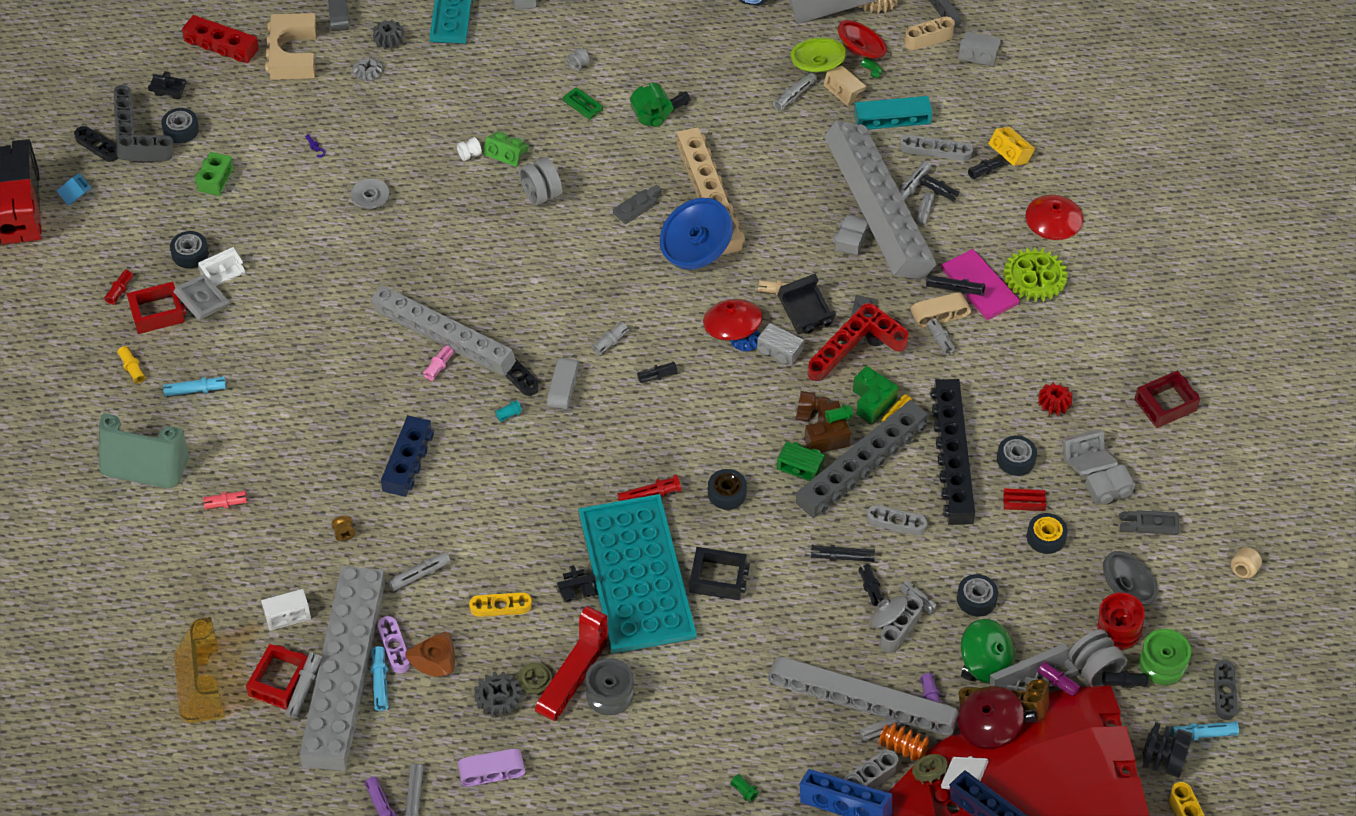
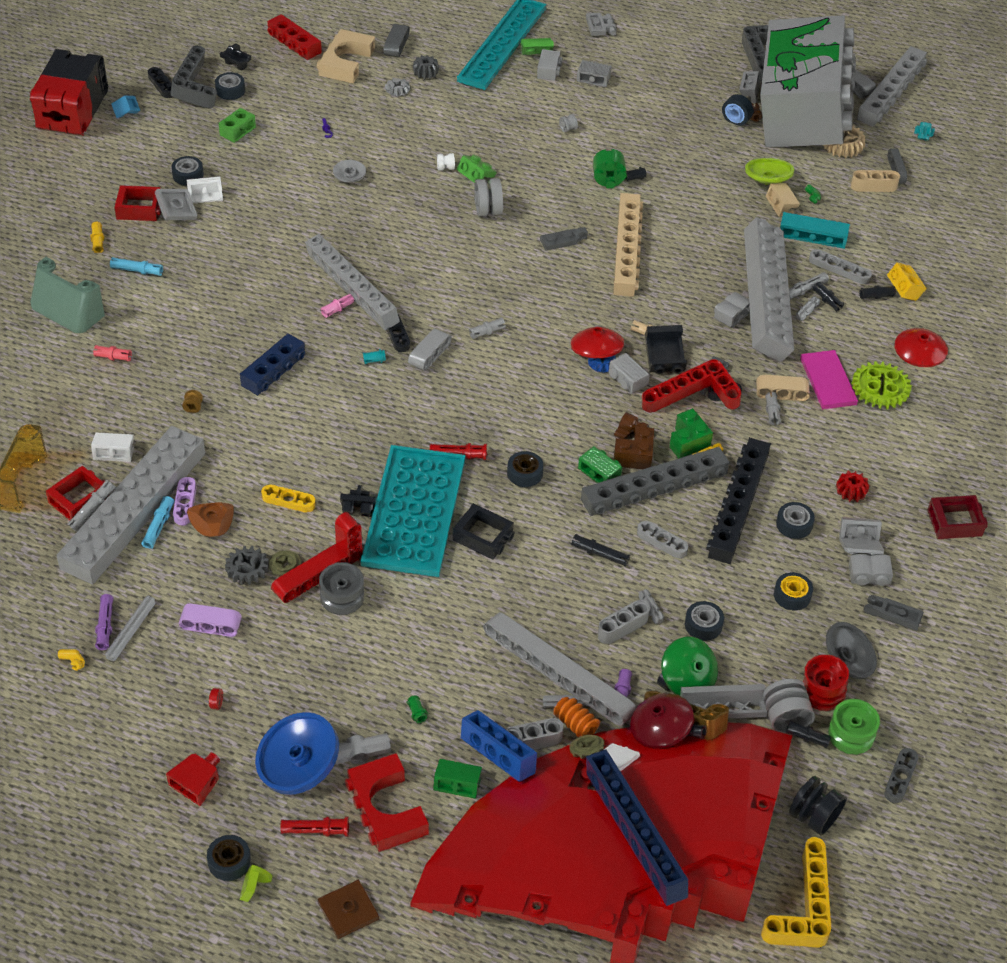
camera: 20 degrees right, 5 degrees down
(118, 287) = (119, 180): red axle -> none
(441, 559) = (235, 452): light grey pin -> none
(580, 105) = (554, 157): green tile -> none
(657, 372) = (515, 364): black axle -> none
(696, 233) = (597, 269): blue dish -> none
(789, 95) = (732, 194): light grey pin -> none
(840, 413) = (647, 436): green pin -> none
(861, 40) = (812, 169): red dish -> none
(871, 584) = (613, 583): black pin -> none
(888, 611) = (615, 606): light grey dish -> none
(957, 285) = (820, 377): black pin -> none
(979, 48) = (913, 203): light grey bracket -> none
(1024, 496) = (786, 556): red tile -> none
(1058, 679) = (743, 711): magenta axle -> none
(1208, 730) = (870, 805): medium azure pin -> none
(1246, 562) = (970, 673): tan head -> none

